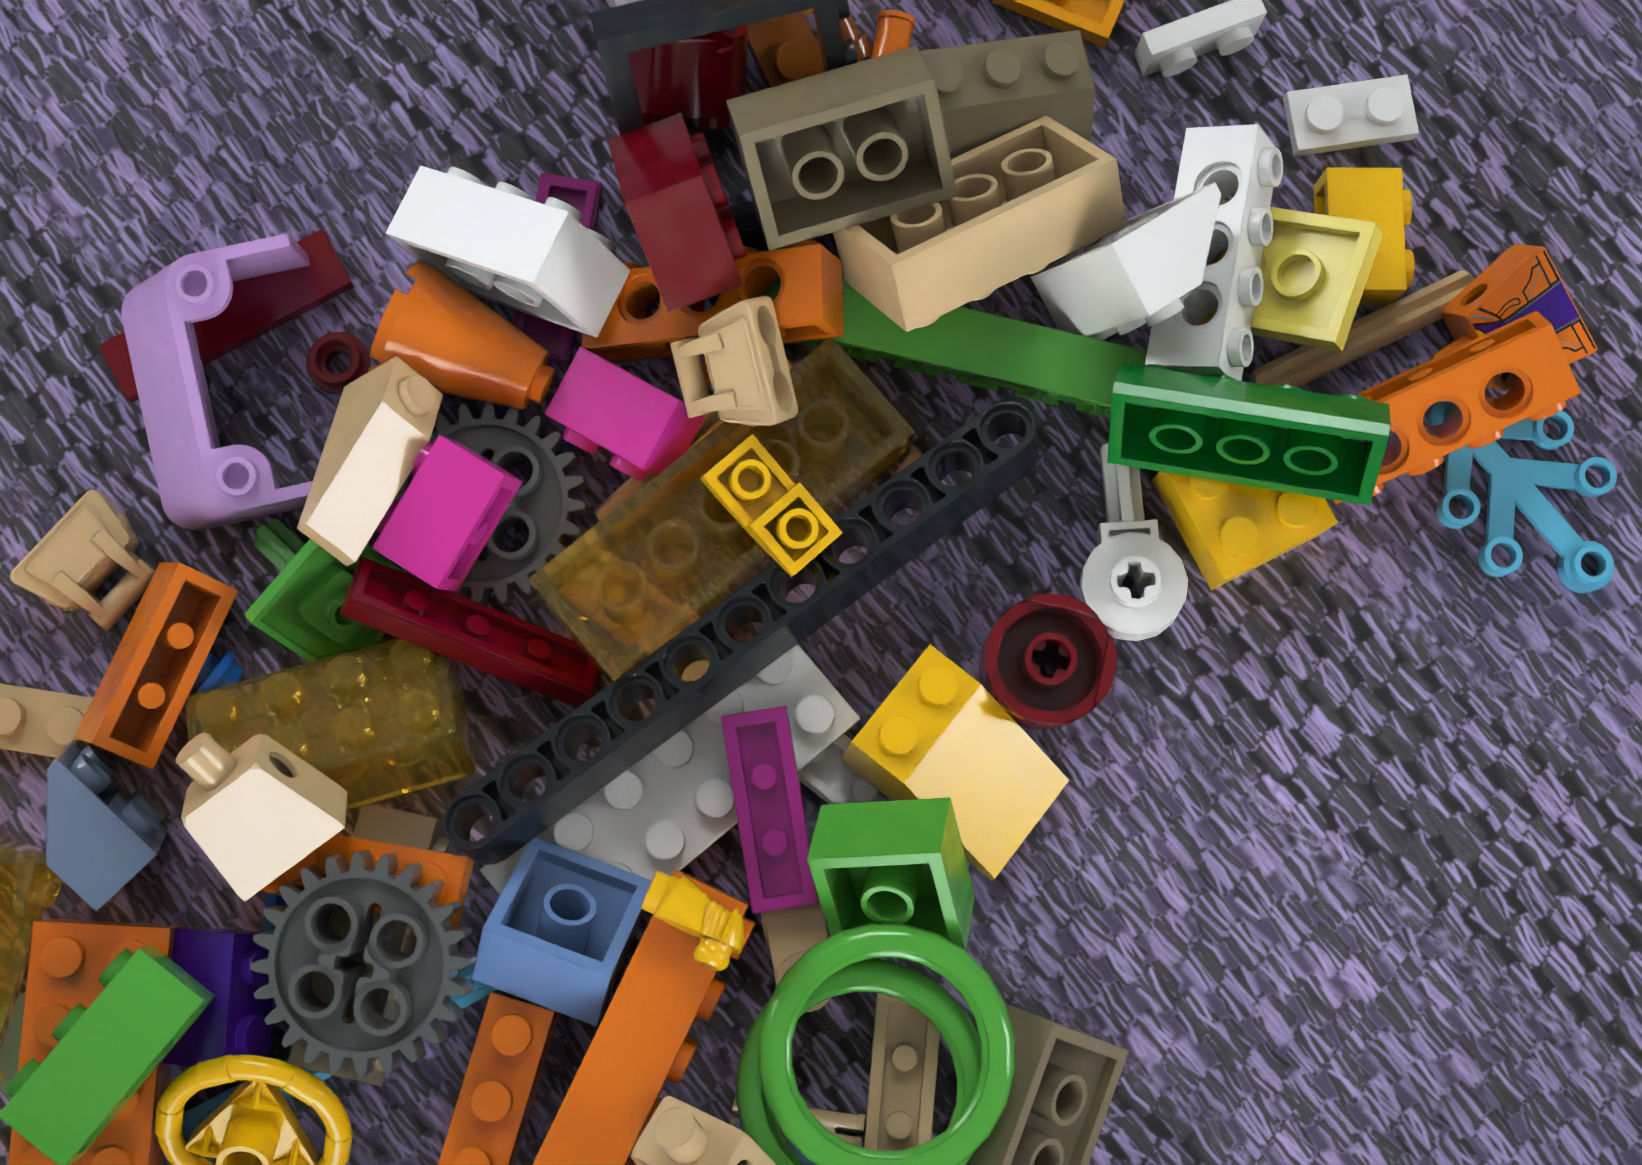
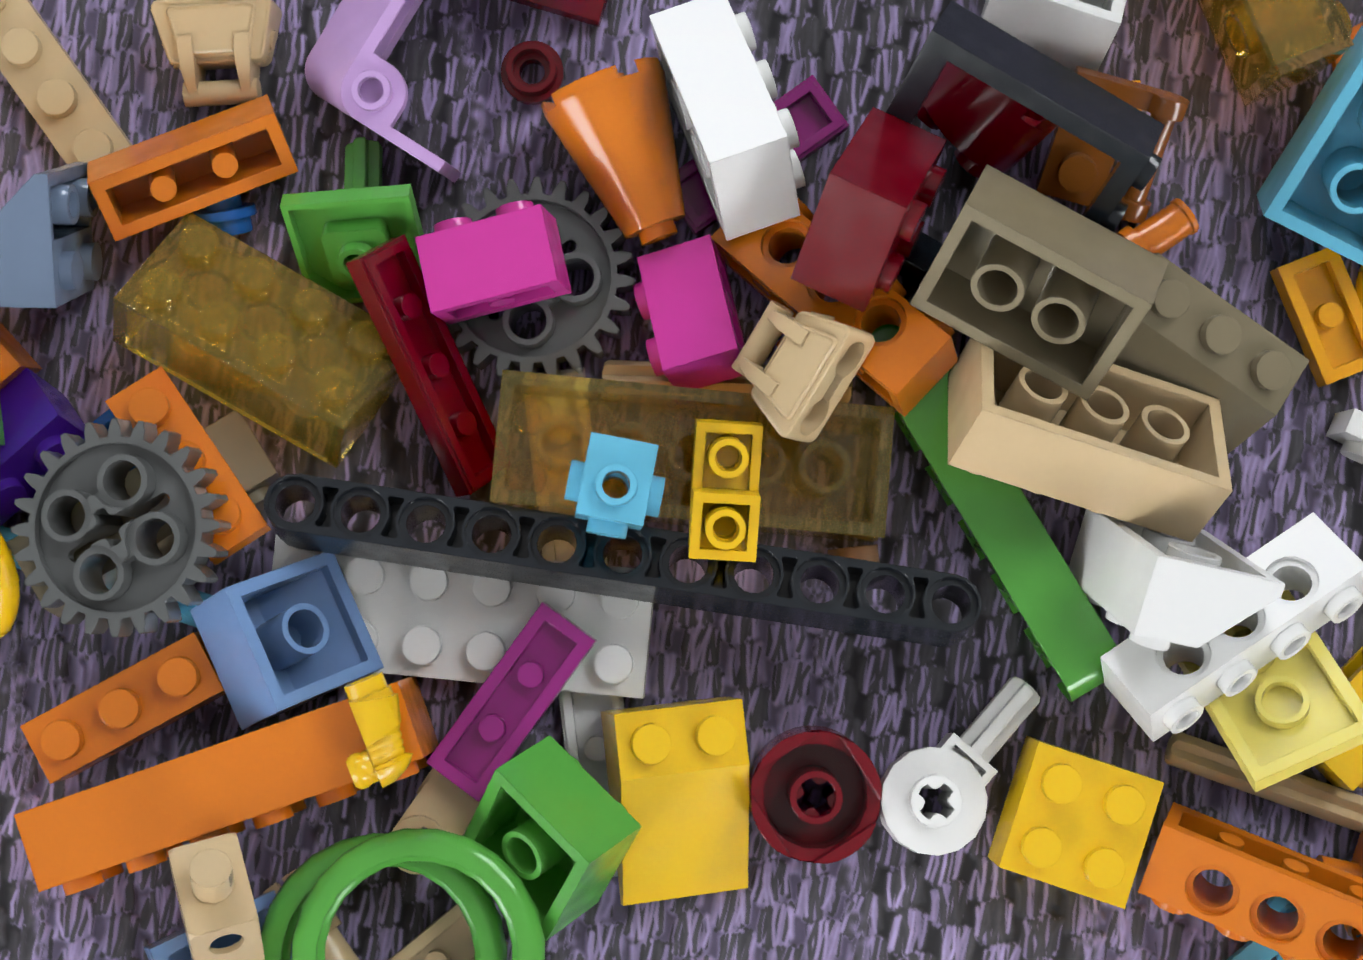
camera: 50 degrees right, 5 degrees up
(257, 808) = (150, 348): torso -> none
(368, 456) = (477, 168): tan slope -> none
(686, 551) = (622, 460): none -> medium azure brick
(1247, 432) = (1125, 786): green slope -> none

